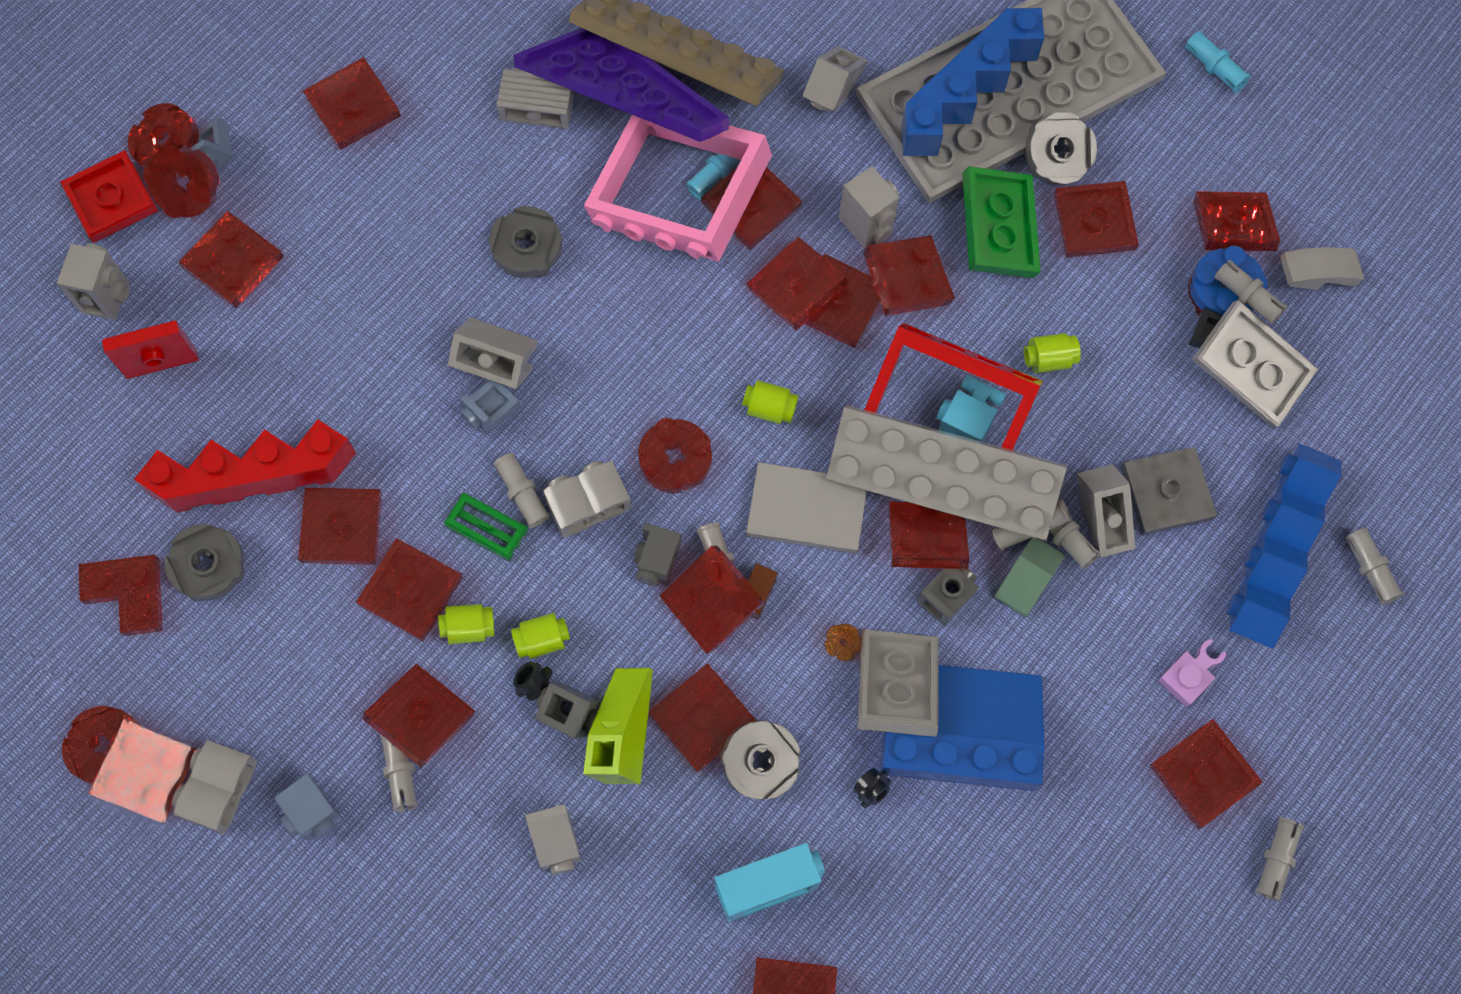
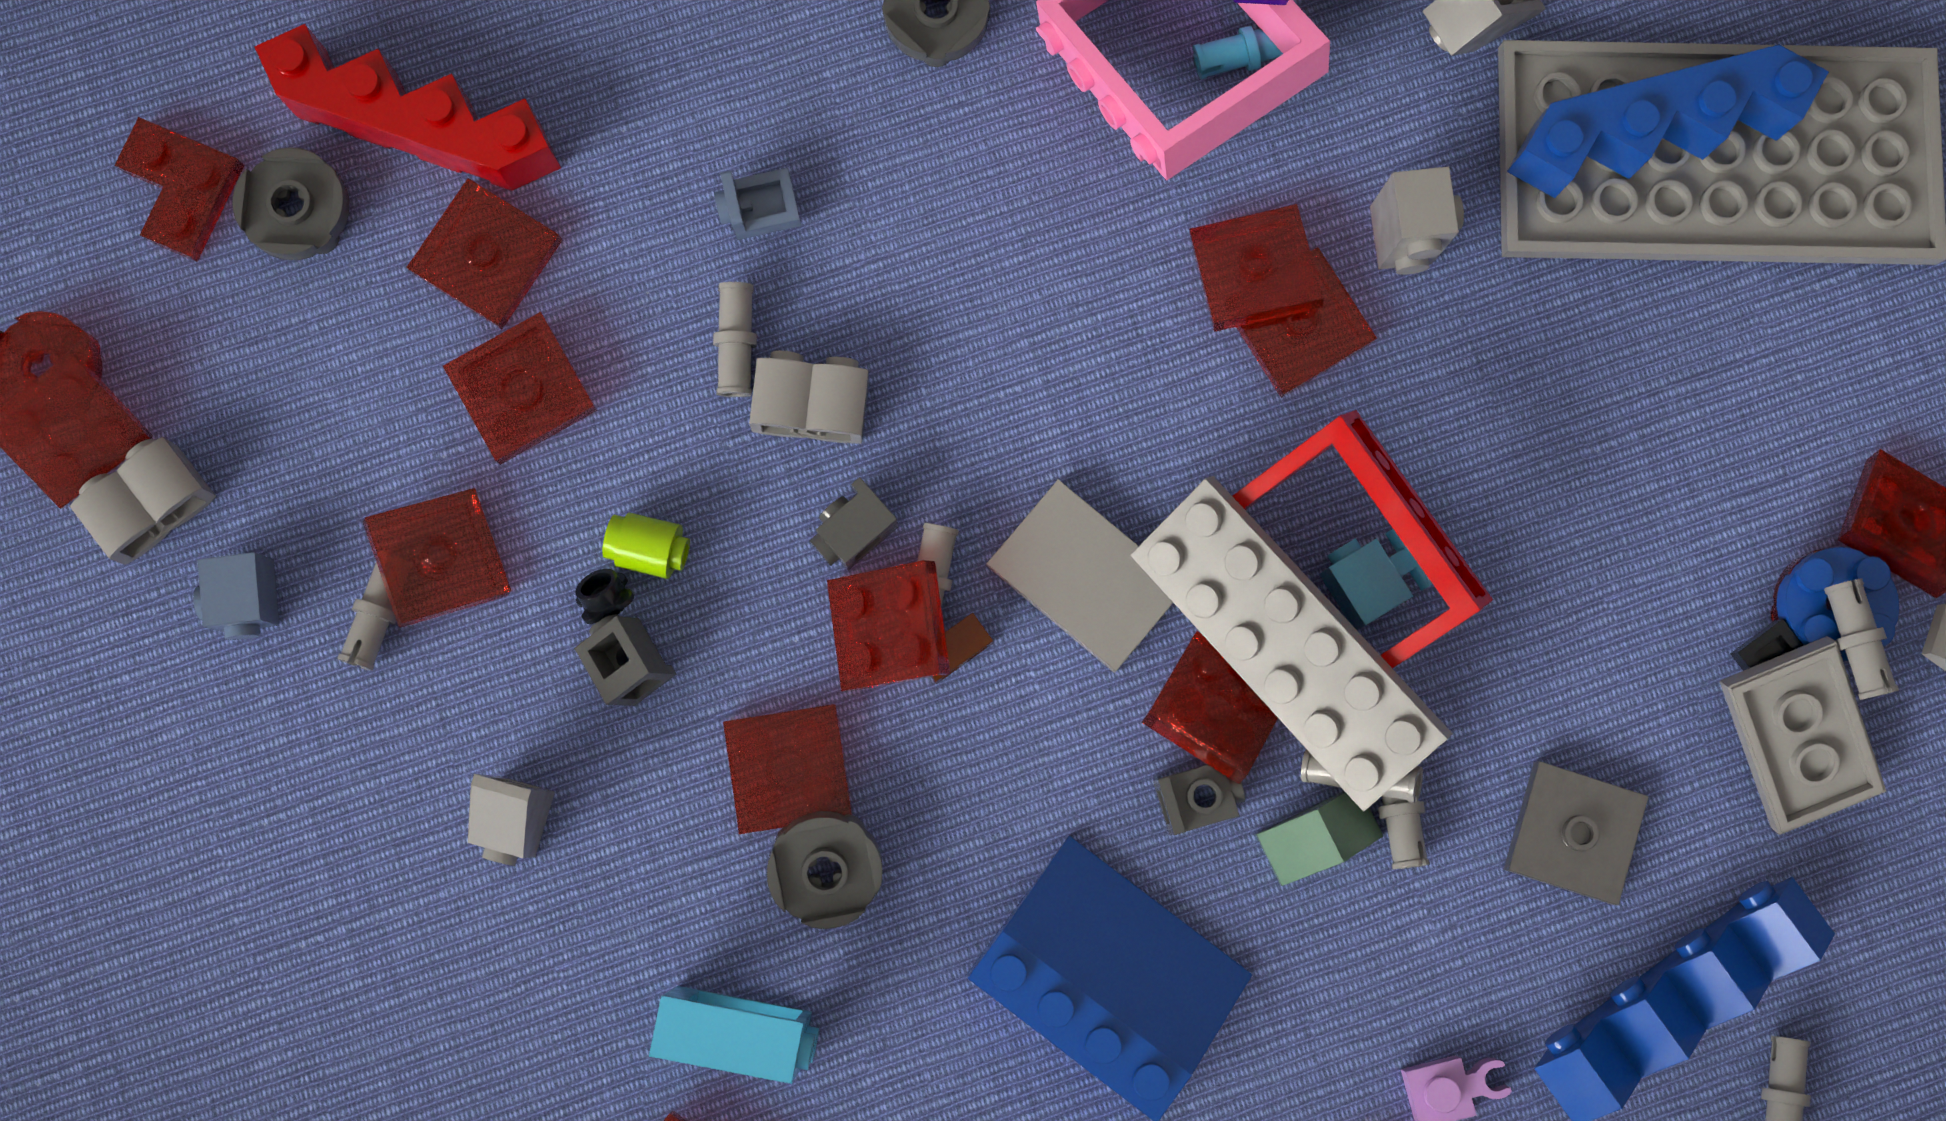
camera: 30 degrees right, 10 degrees up
(466, 623) = (565, 474): lime brick -> none
(492, 352) = (800, 135): light grey brick -> none
(513, 542) = (687, 400): green tile -> none
(620, 728) = (672, 724): lime slope -> none
(683, 474) = (963, 375): clear red plate -> none
(766, 210) = (1278, 142): clear red plate -> none
(770, 402) = (1122, 408): lime brick -> none
(846, 632) = (1023, 762): clear orange plate -> none
(872, 787) = (944, 988): black plate -> none
(898, 683) = (1057, 879): light grey tile -> none
(908, 275) = (1411, 341): clear red plate -> none
(1001, 222) = (1582, 339): green plate -> none
(1041, 154) = (1717, 254): plate -> none
(1052, 352) = (1537, 558): lime brick -> none
(1095, 219) = (1716, 408): clear red plate -> none
(1107, 509) = (1476, 811): light grey slope -> none

